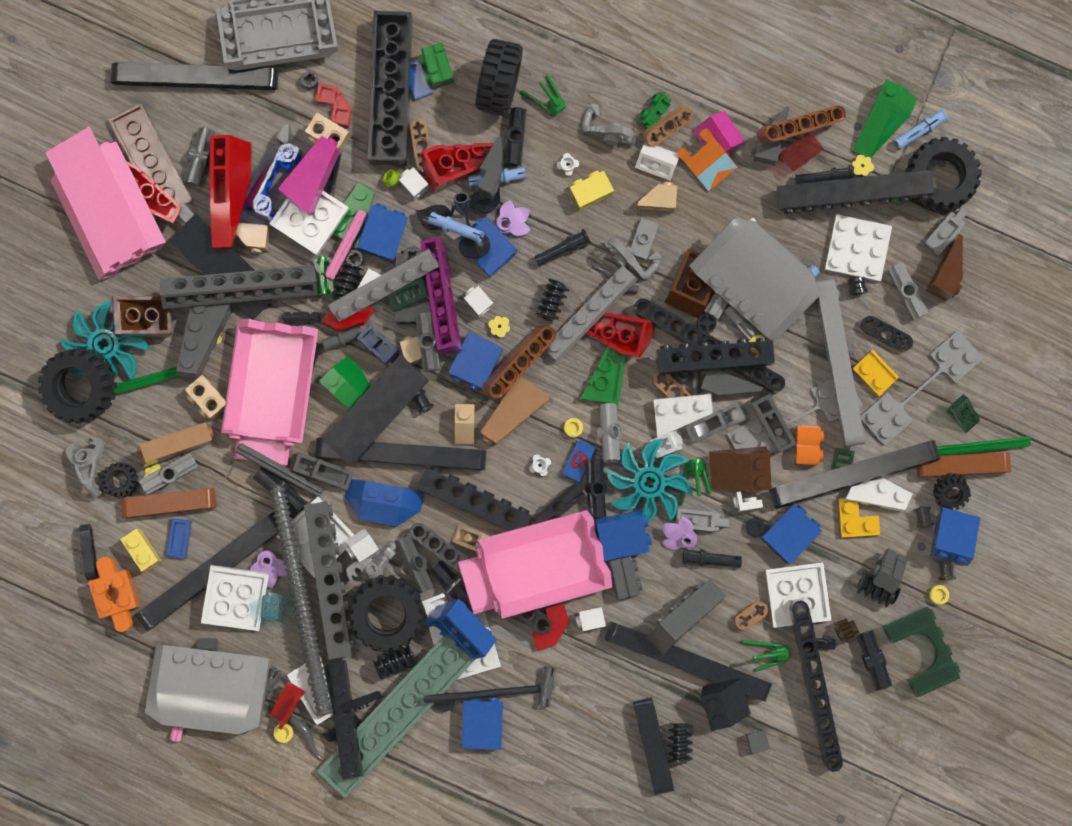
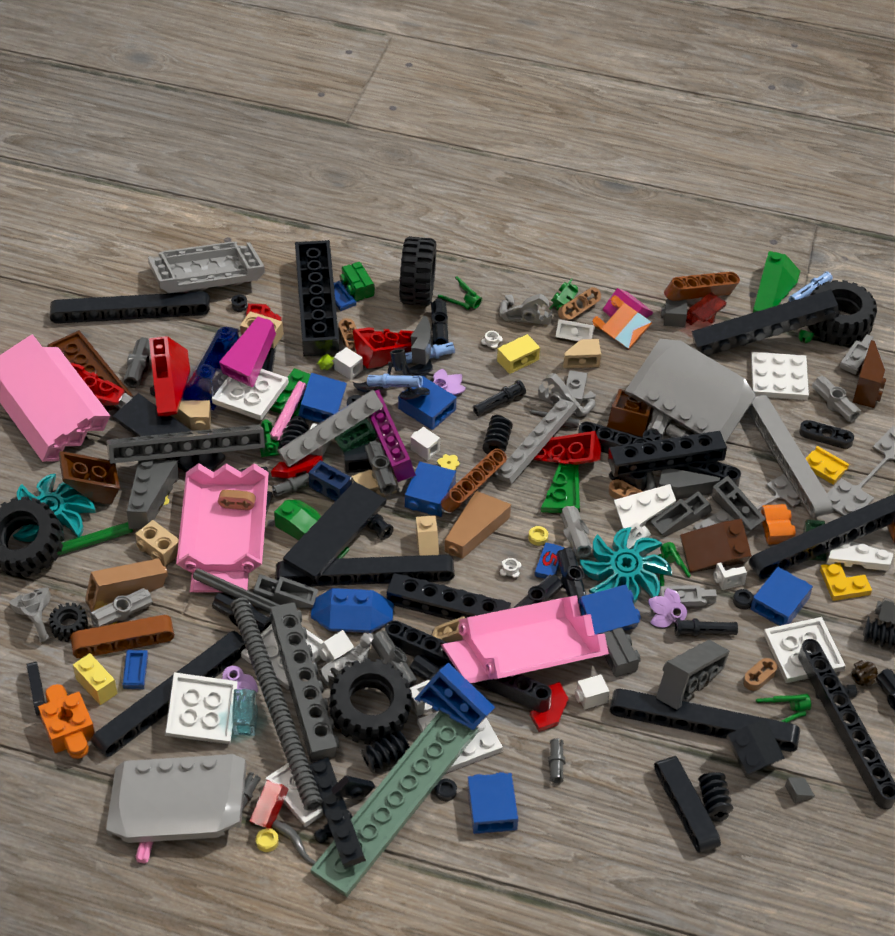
camera: 10 degrees left, 35 degrees down
(284, 360) = (236, 499): none -> medium nougat beam
(481, 694) = (486, 769): black piece -> none
(857, 286) = (787, 399): black wheel -> none

